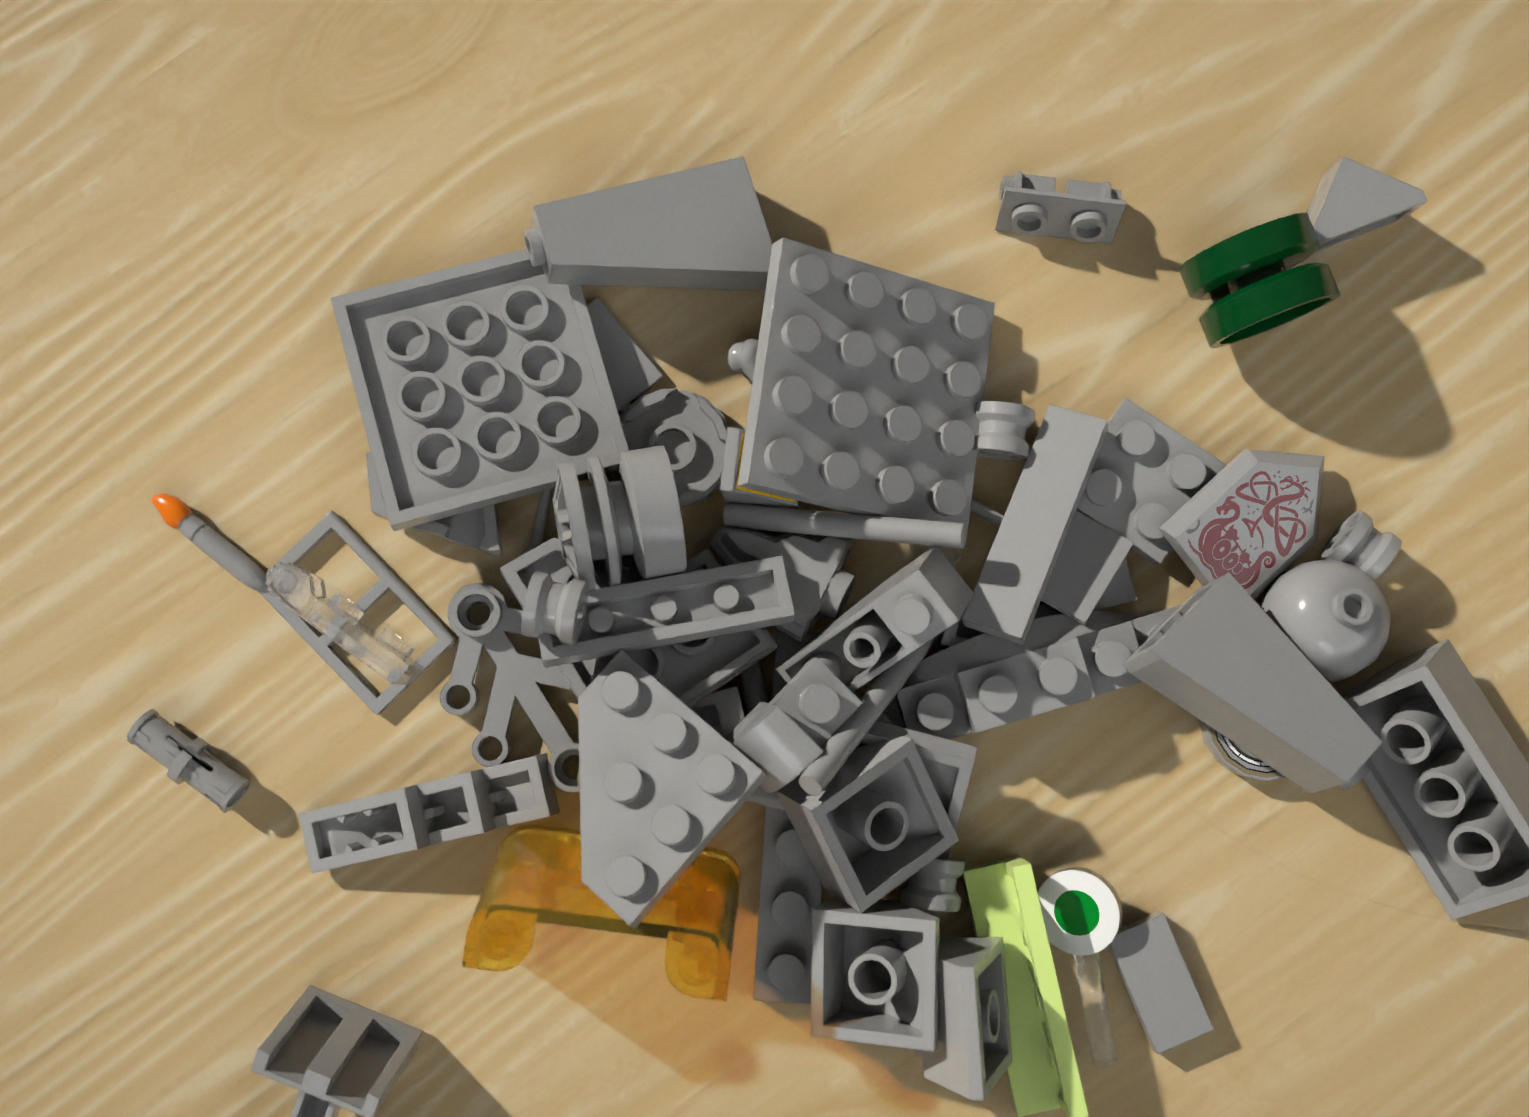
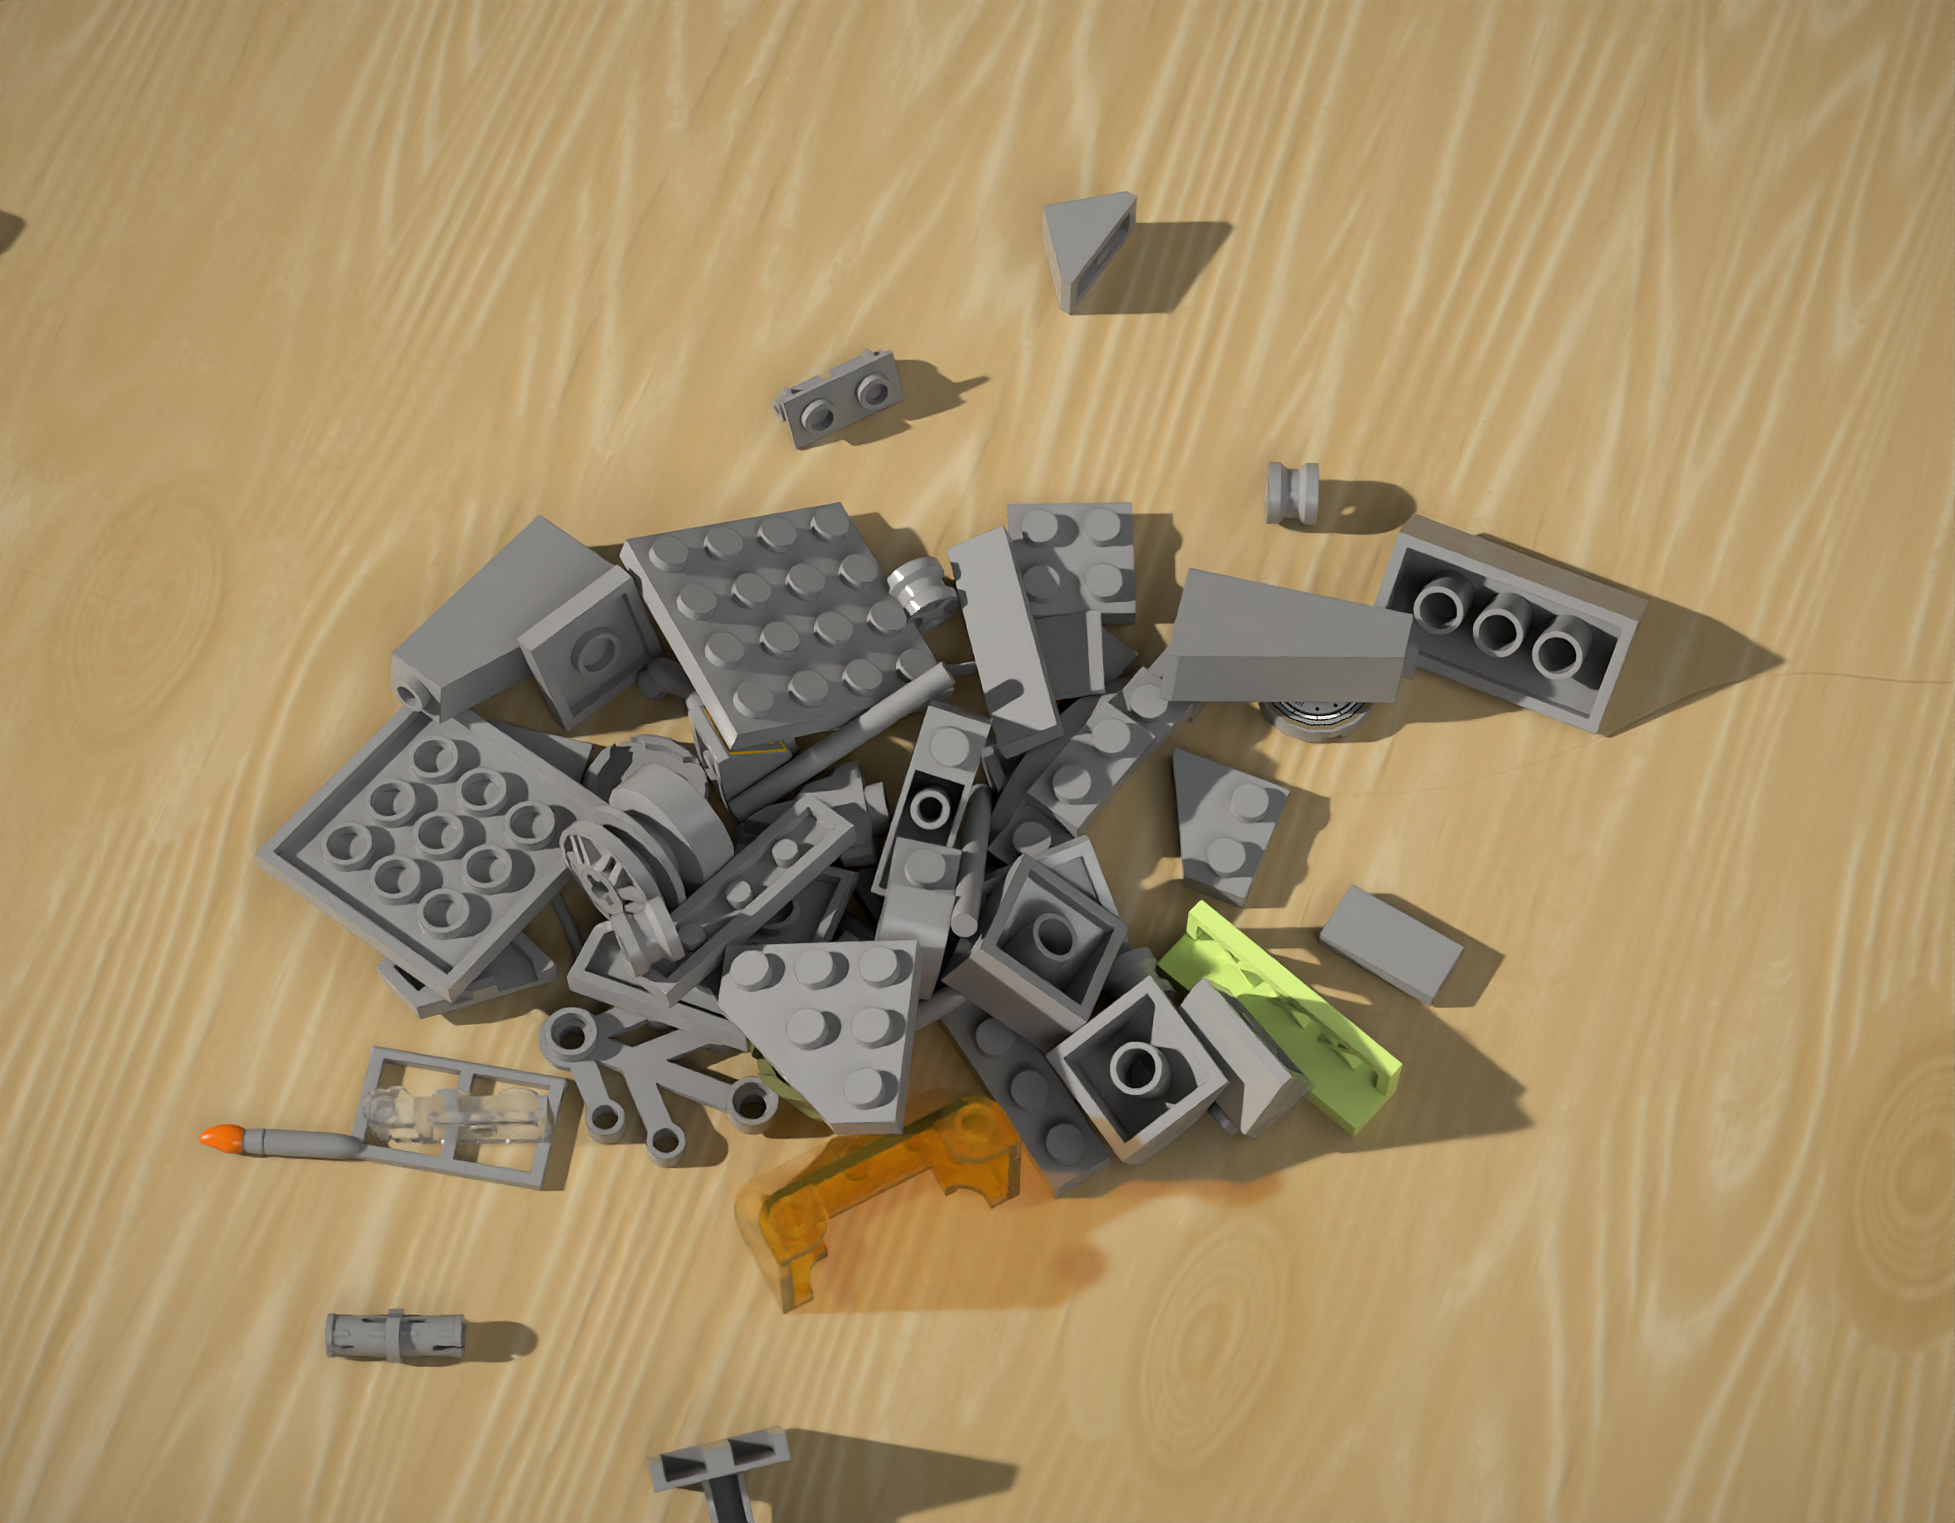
camera: 35 degrees left, 20 degrees down
(429, 813) = (649, 1233): light grey slope -> none
(702, 301) = (591, 648): none -> light grey plate
(1081, 919) = (1292, 931): piece -> none
(1099, 789) = (1223, 825): none -> light grey wing
(1250, 518) = (1182, 520): light grey tile -> none
(1258, 280) = (1046, 339): dark green wheel -> none
(1331, 615) = (1307, 551): light grey cylinder -> none

